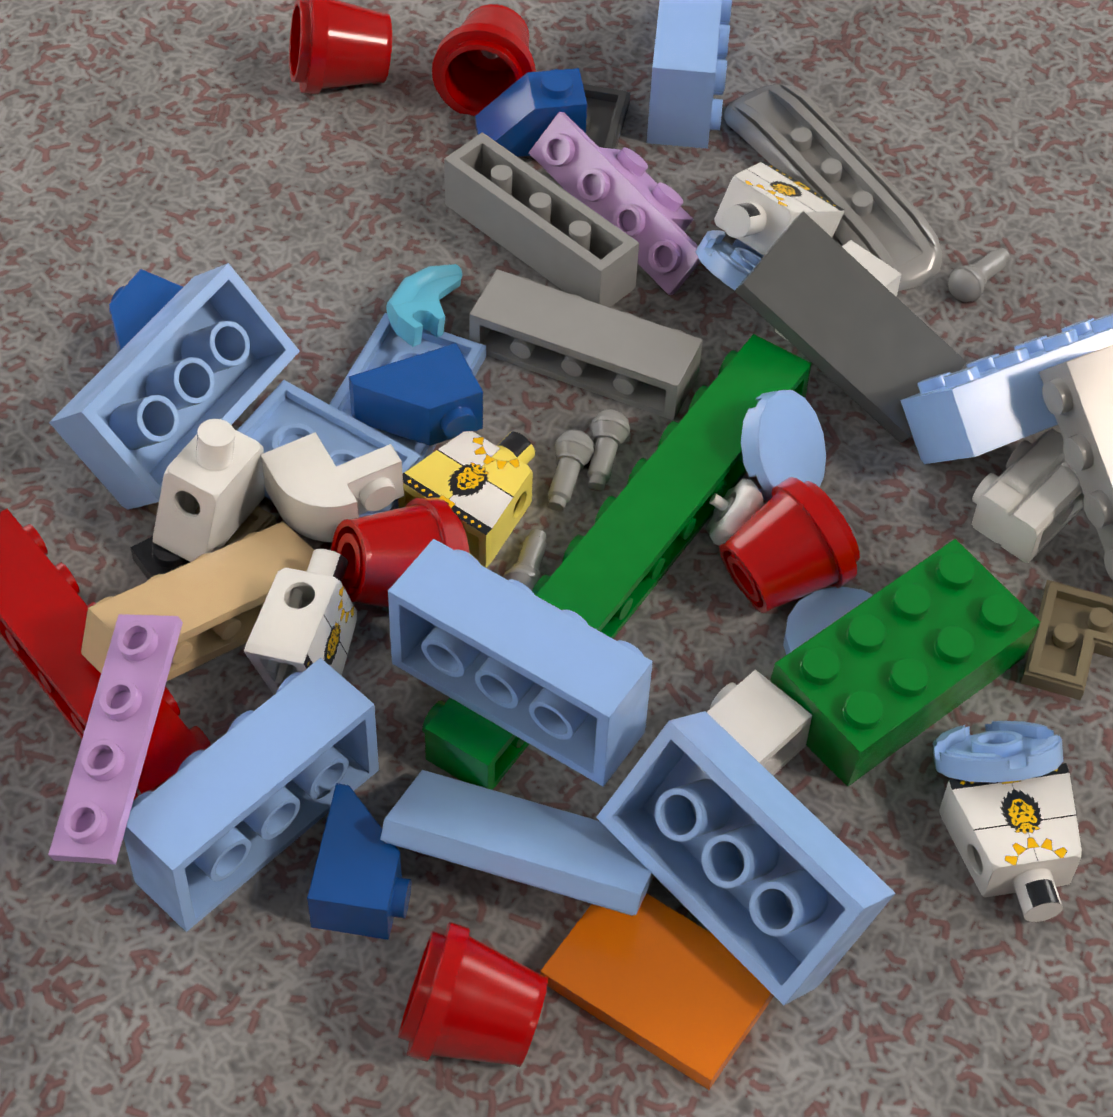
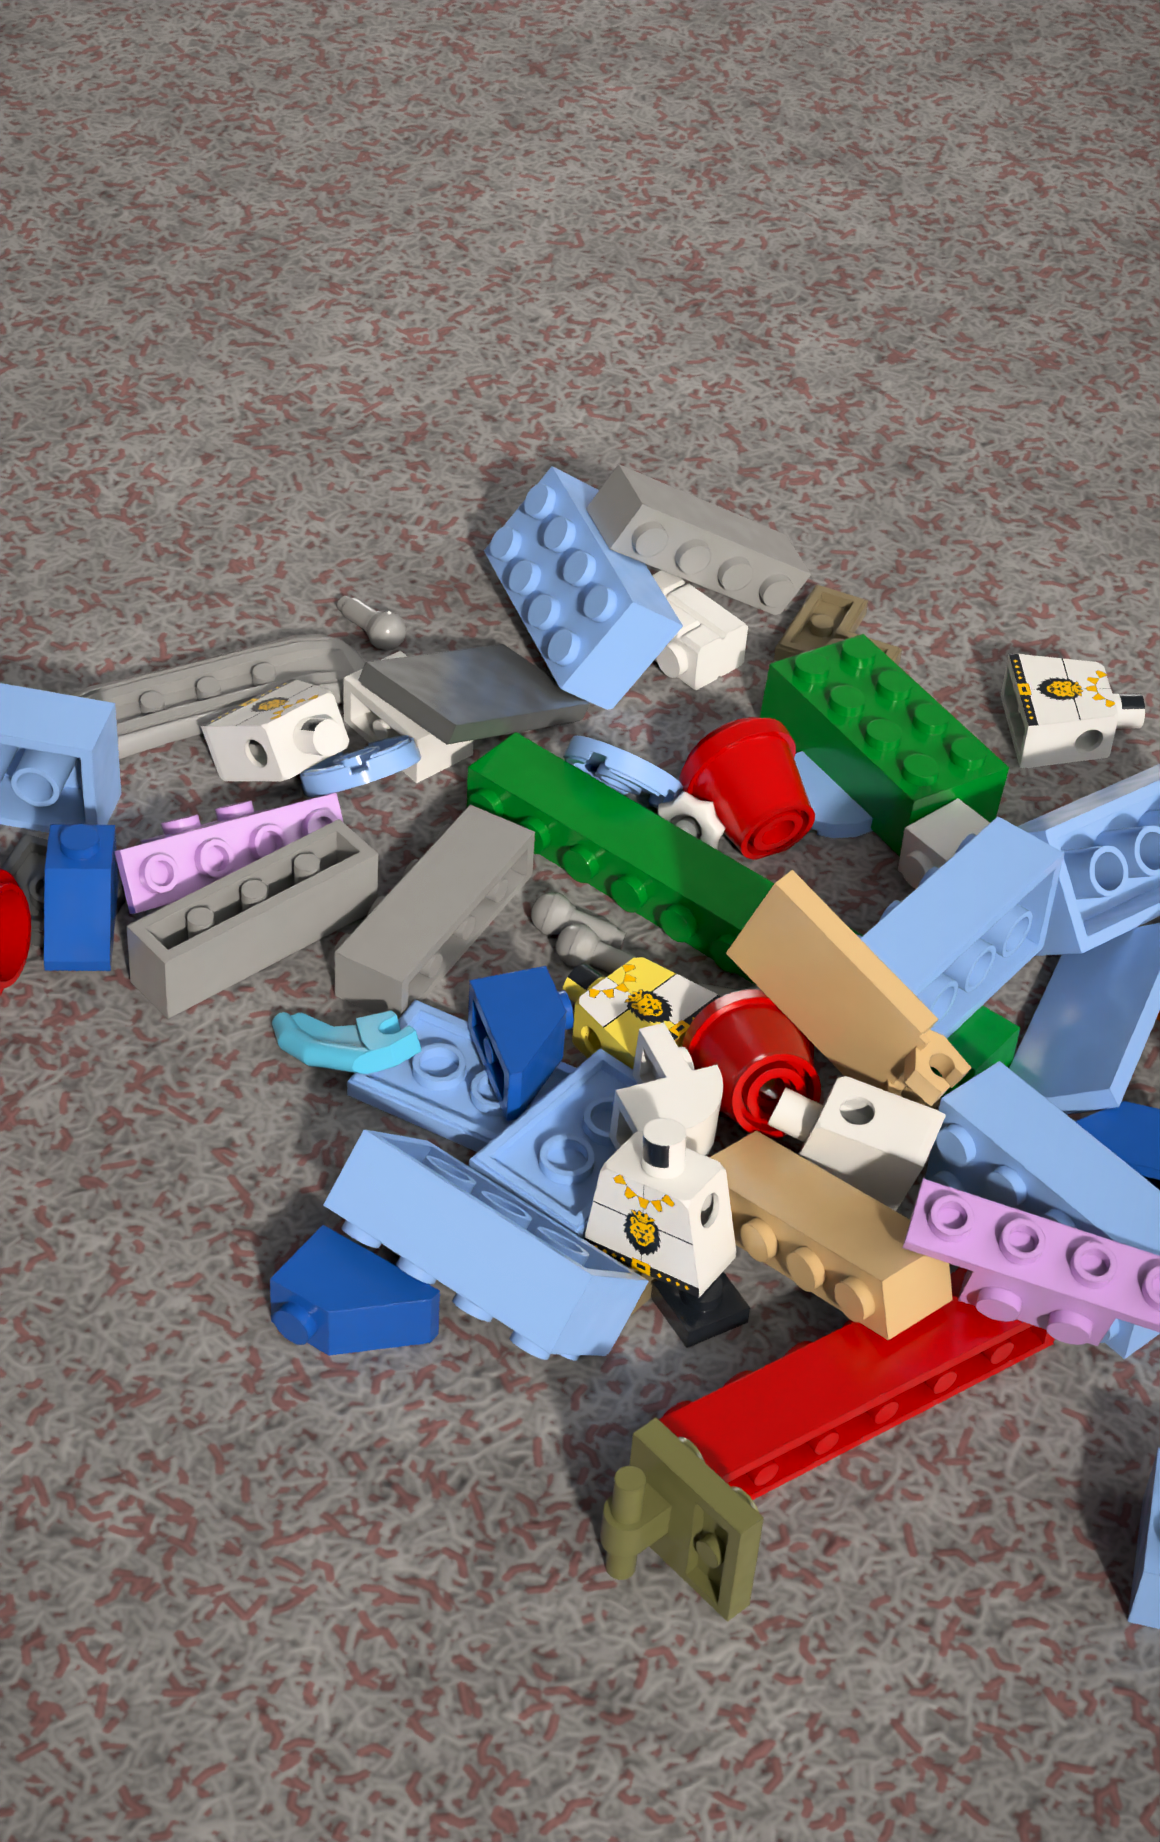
camera: 85 degrees left, 10 degrees down
(445, 509) = (844, 996): none -> tan tile
(1000, 754) = (994, 693): light blue tile -> none

